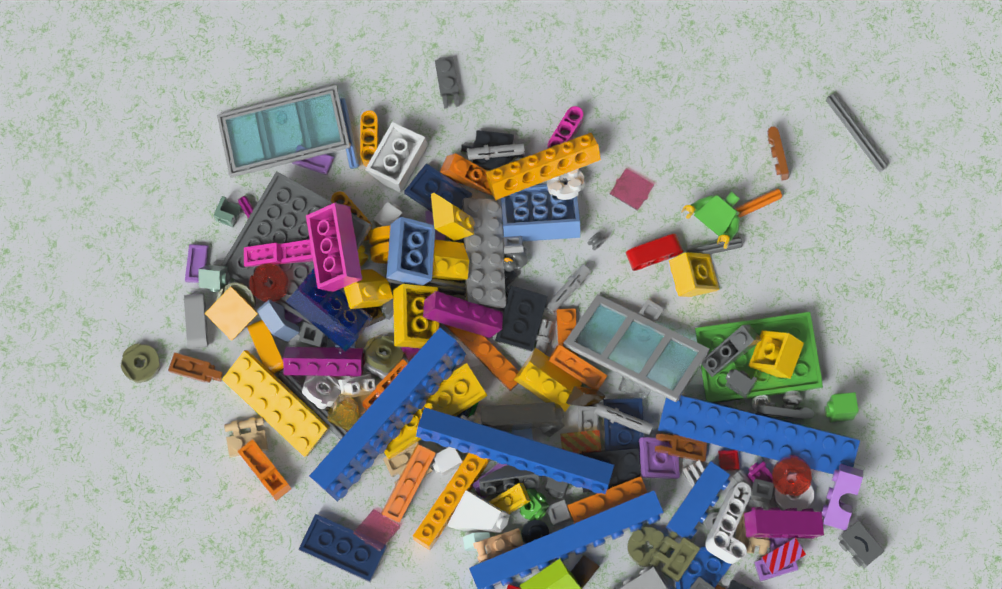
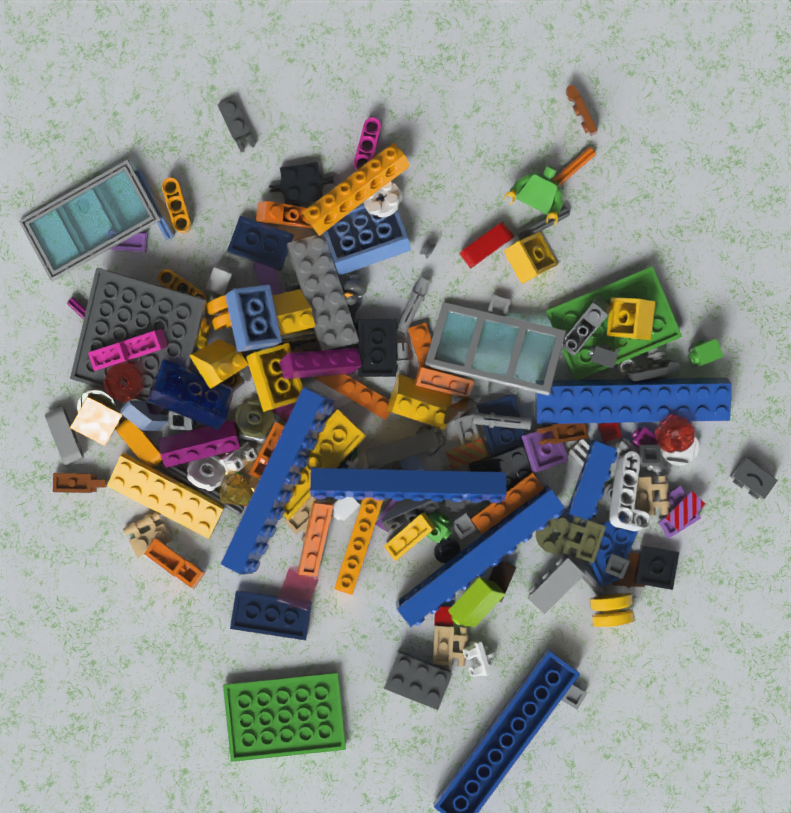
camera: 20 degrees left, 15 degrees up
(141, 352) = (24, 502): olive plate -> none
(196, 259) = (46, 377): medium lavender tile -> none
(213, 277) = (67, 389): brick -> none
(227, 212) = (60, 318): sand green panel -> none
(333, 247) = (177, 336): dark pink brick -> none
(397, 157) = (209, 218): white slope -> none
(450, 219) = (281, 270): yellow slope -> none
(472, 538) = (395, 575): light aqua piece -> none
(478, 515) = (390, 552): white slope -> none
(495, 151) = (305, 186): light grey pin -> none
(498, 544) = (416, 574): light nougat plate -> none
(513, 244) = (349, 277): light grey tile -> none
(631, 189) = (447, 185): clear pink piece -> none
(783, 524) = (678, 482): magenta brick -> none
(836, 512) = (726, 426): arch -> none
(856, 132) = (652, 67): axle -> none

